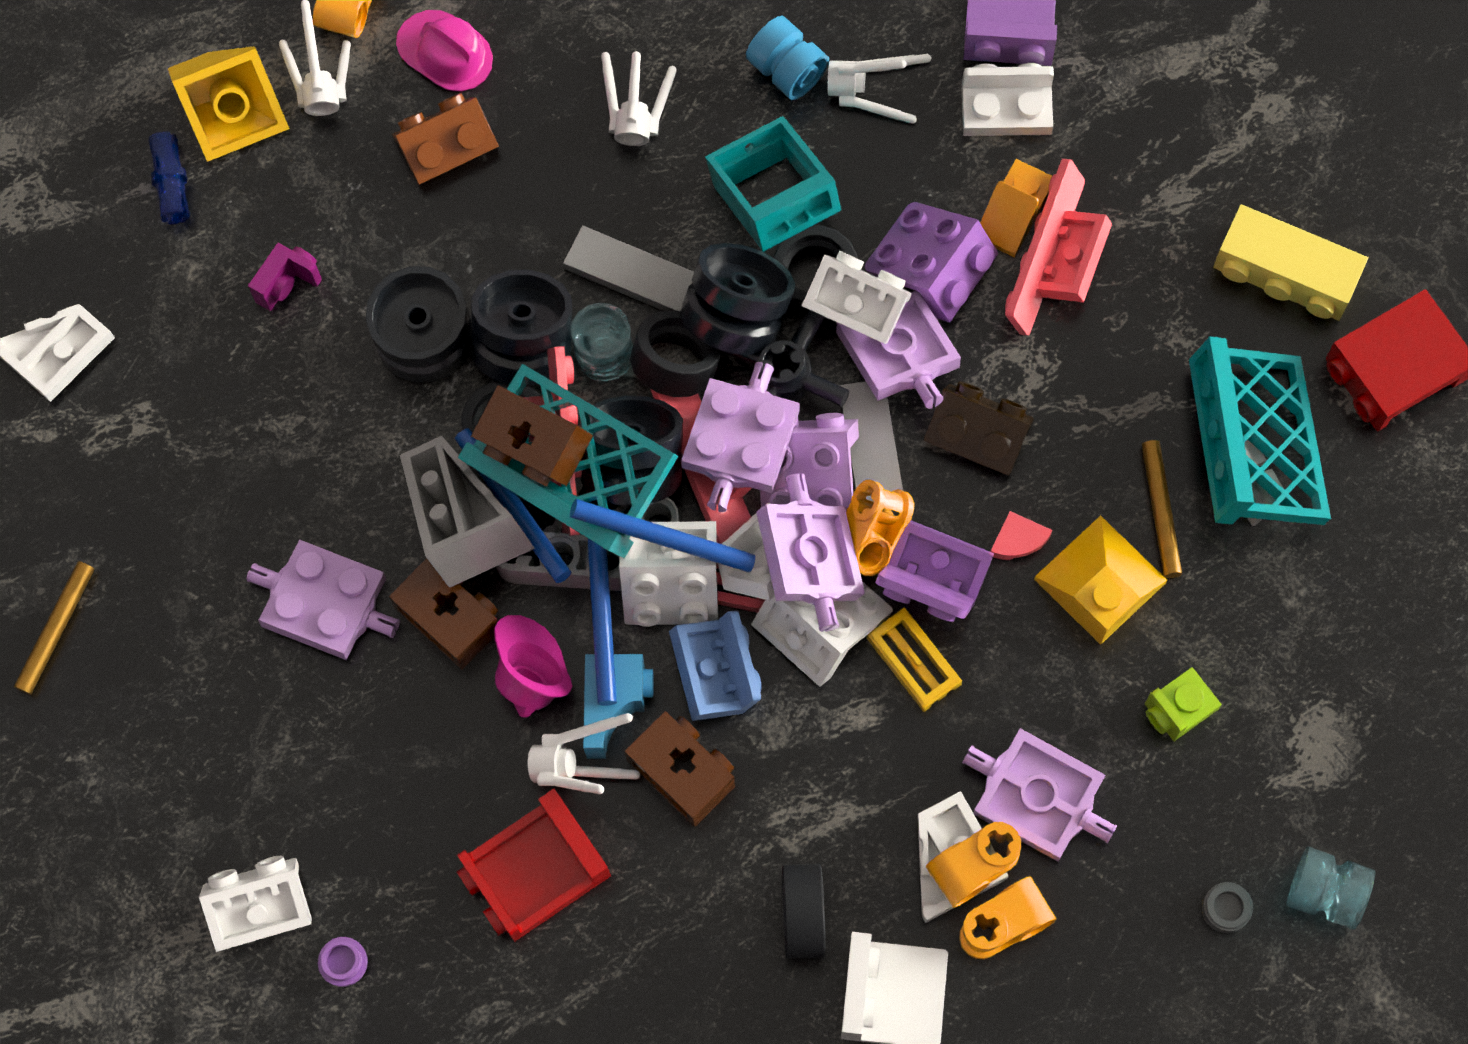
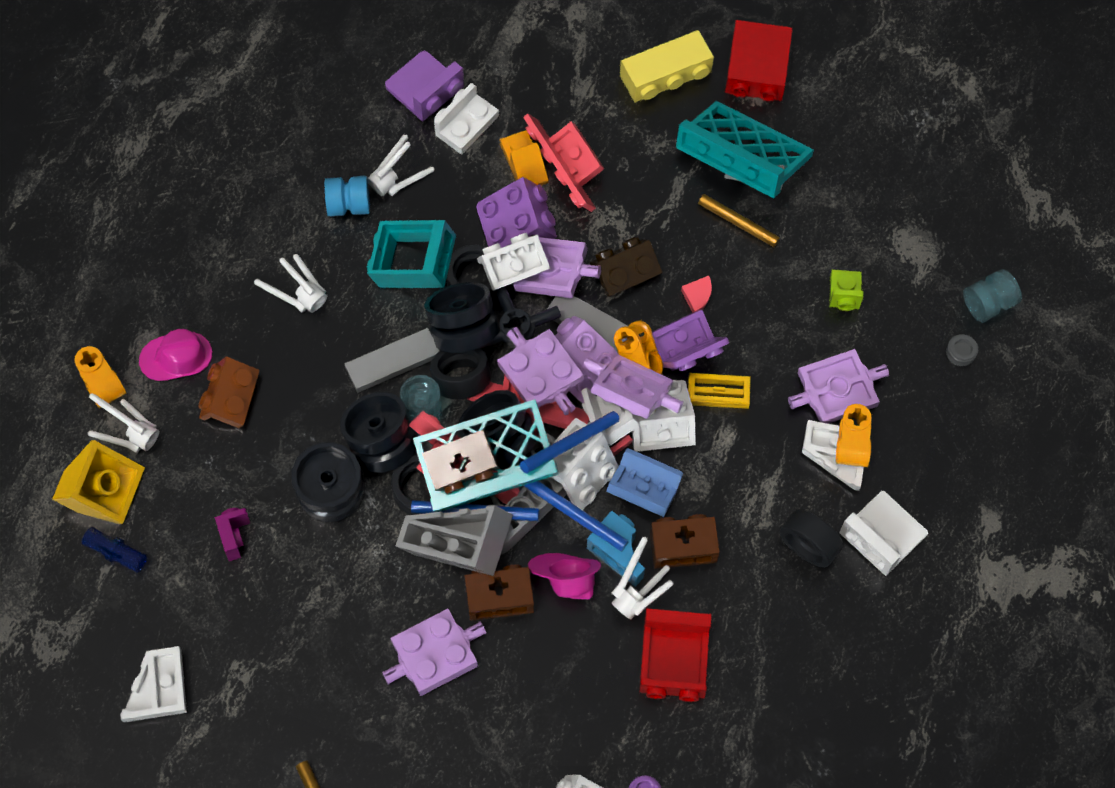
camera: 55 degrees left, 5 degrees down
(1013, 917) = (889, 449): light orange piece -> none
(1100, 579) = (752, 276): yellow slope -> none

